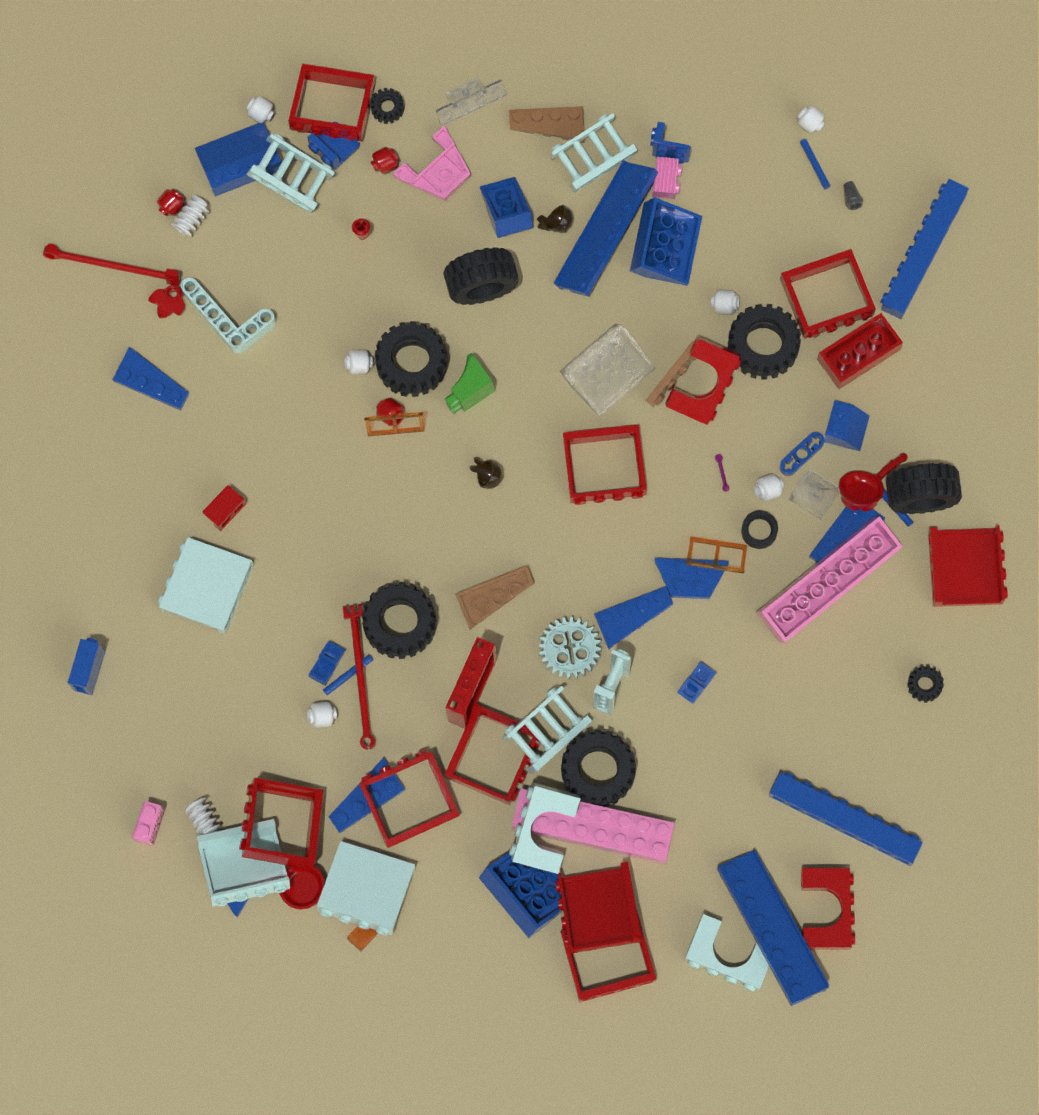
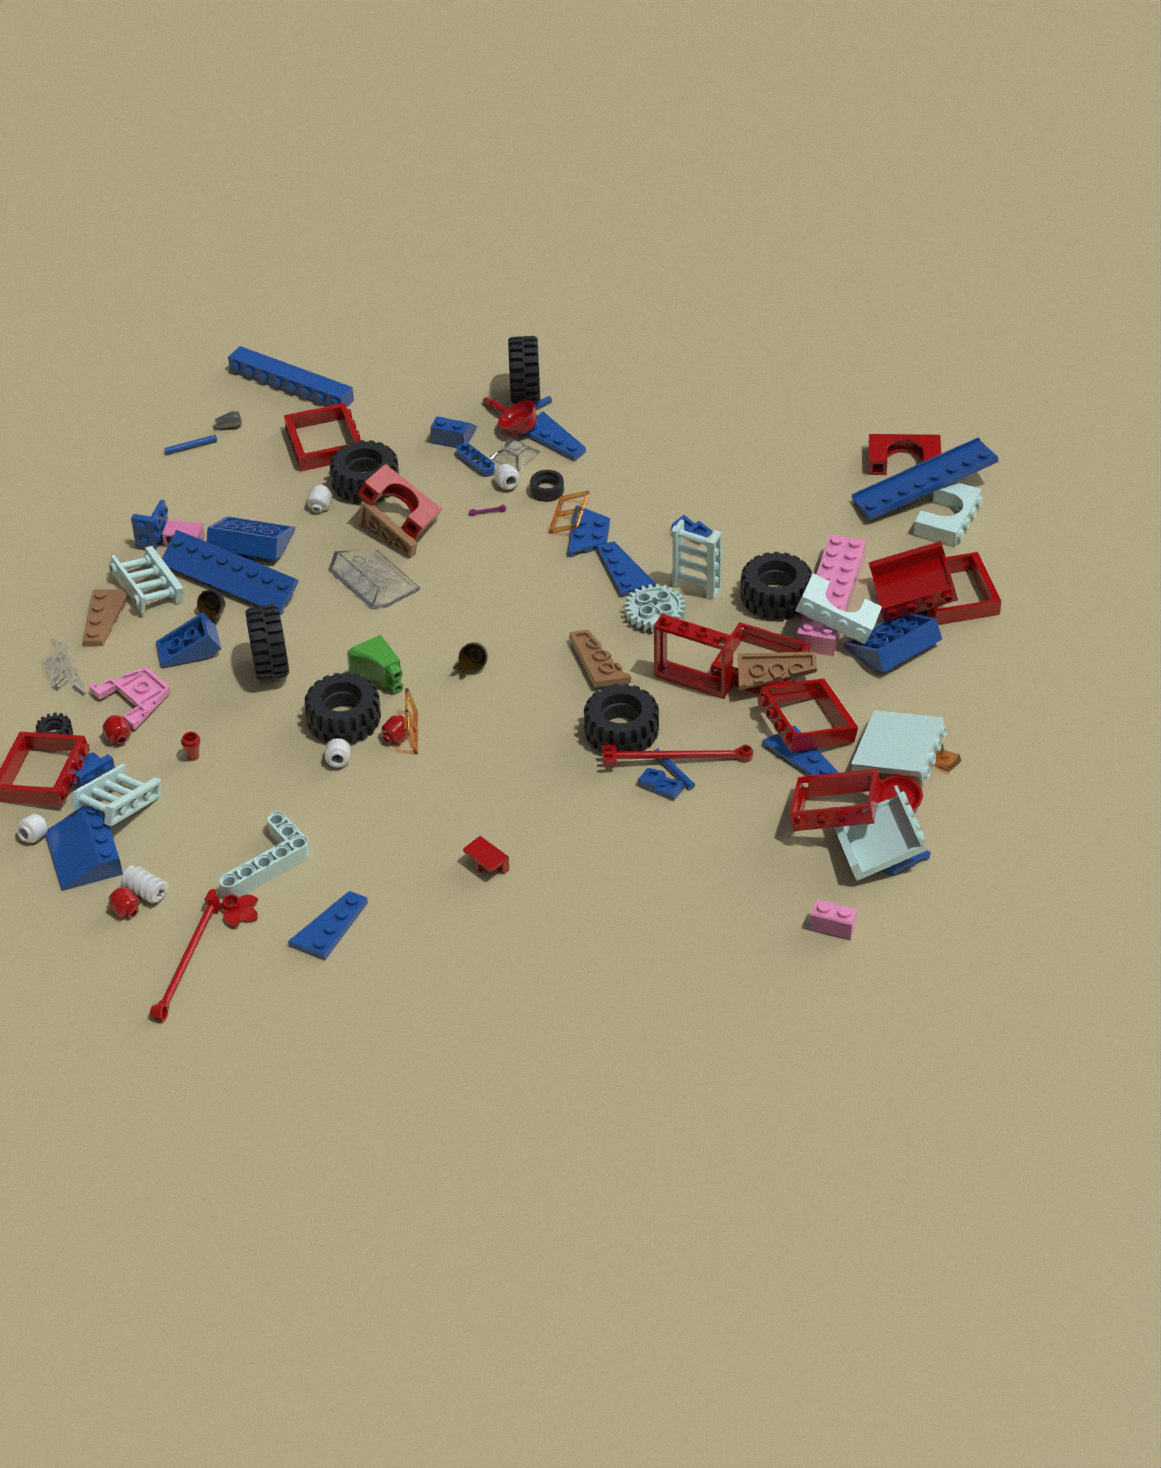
camera: 90 degrees left, 30 degrees down
(86, 666) = (659, 965): blue brick -> none
(201, 817) = (828, 873): white piece -> none
(206, 584) = (570, 873): light aqua panel -> none
(321, 714) = (716, 783): white head -> none
(465, 759) = (766, 668): none -> medium nougat wing
(551, 749) = (745, 607): light aqua fence -> none
(598, 435) = (471, 558): red window -> none
(811, 119) = (146, 441): white head -> none
(829, 579) = (601, 438): bright pink brick -> none
(845, 818) = (821, 442): blue brick -> none
(860, 351) = (383, 415): red brick -> none
(925, 695) = (698, 393): black tyre -> none
(967, 567) = (592, 366): red panel -> none

